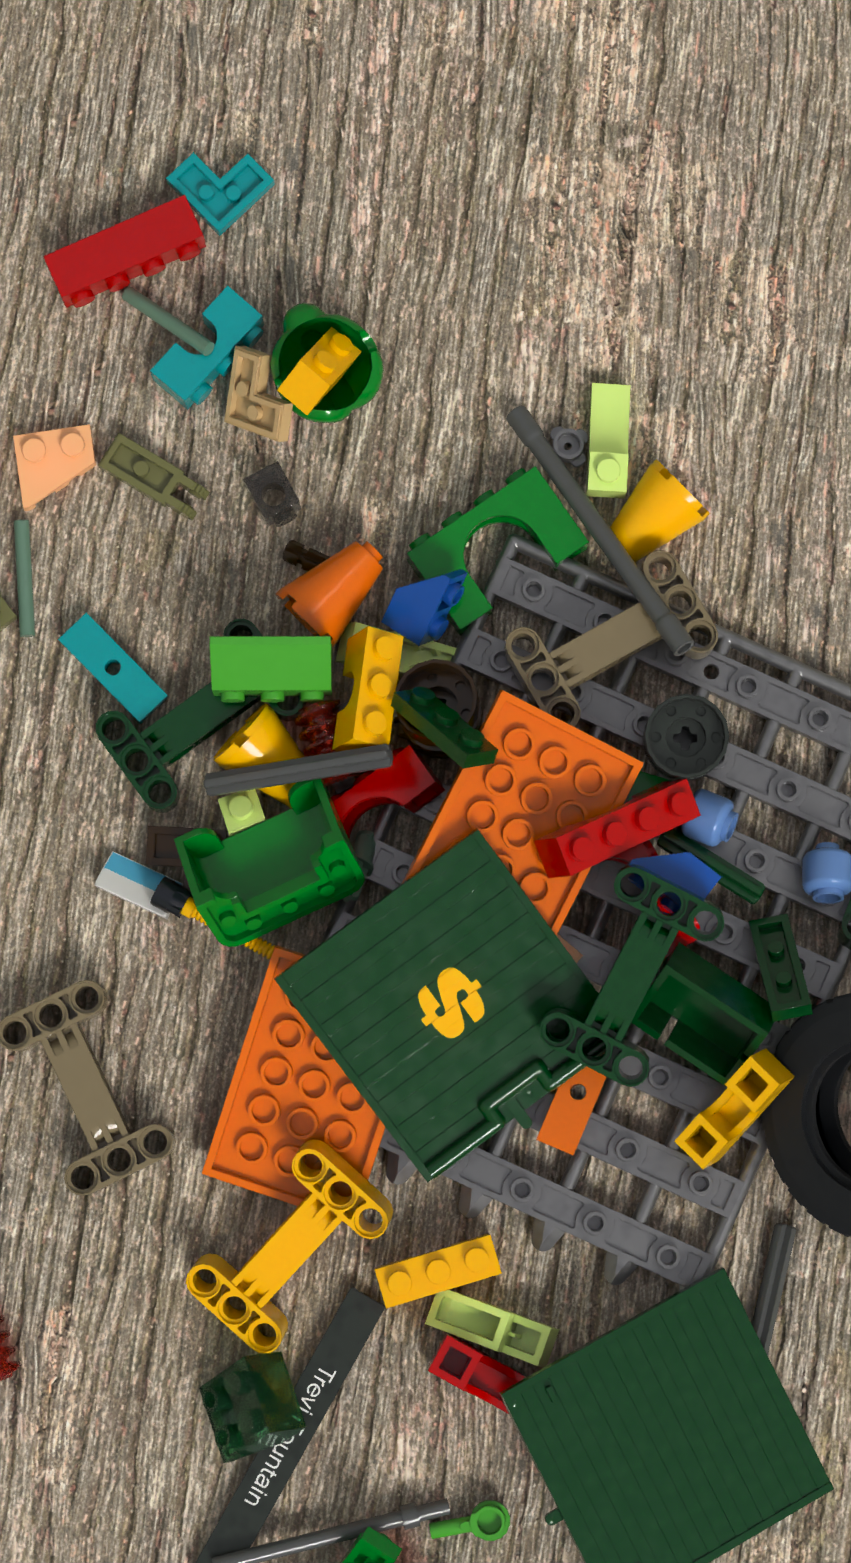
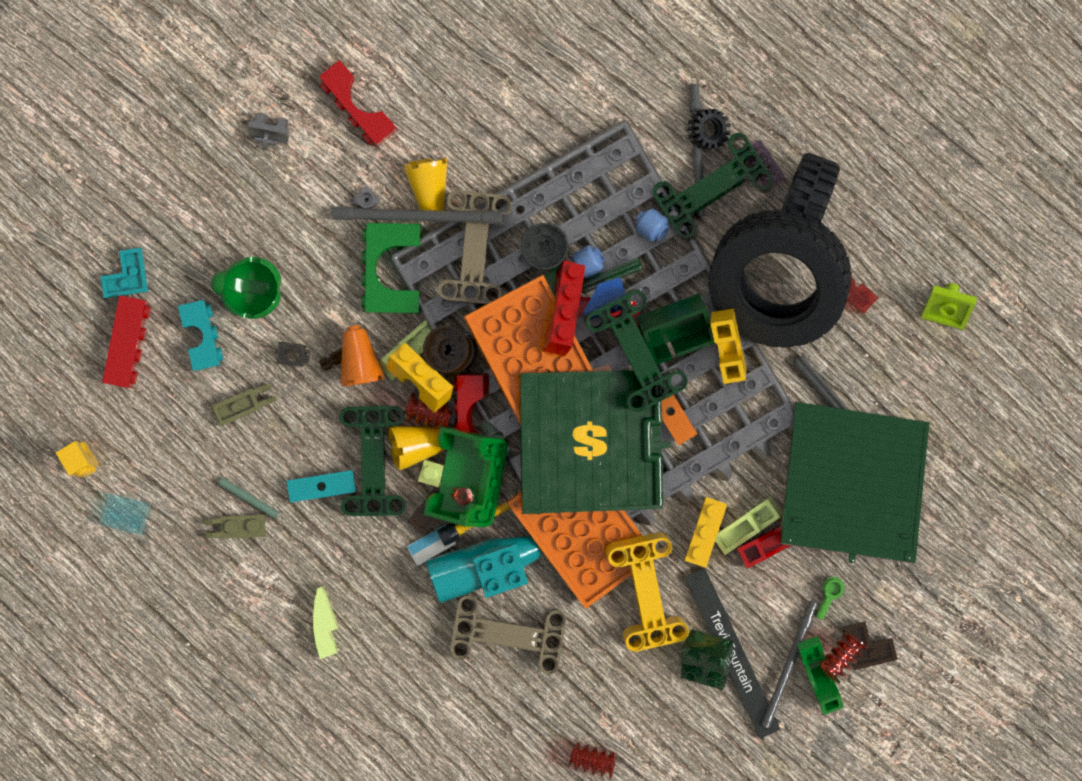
camera: 50 degrees left, 5 degrees up
(52, 460) = (201, 446): light nougat wing -> none
(164, 985) = (487, 565): none -> teal piece
(168, 321) = (168, 347): sand green bar -> none
(247, 399) = (238, 334): tan tile -> none
(248, 875) = (458, 492): none -> clear red pin
(271, 667) = (377, 414): bright green slope -> none
(298, 770) = (433, 434): dark grey axle -> none
(319, 370) = (251, 292): yellow brick -> none
(422, 607) = (396, 323): blue slope -> none
(444, 727) = (462, 355): dark green plate -> none
(562, 244) = (267, 133): none -> flat silver hips
(608, 441) = (377, 179): yellowish green slope -> none
(683, 383) = (375, 125): none -> red arch
(780, 967) = (679, 279): dark green plate -> none

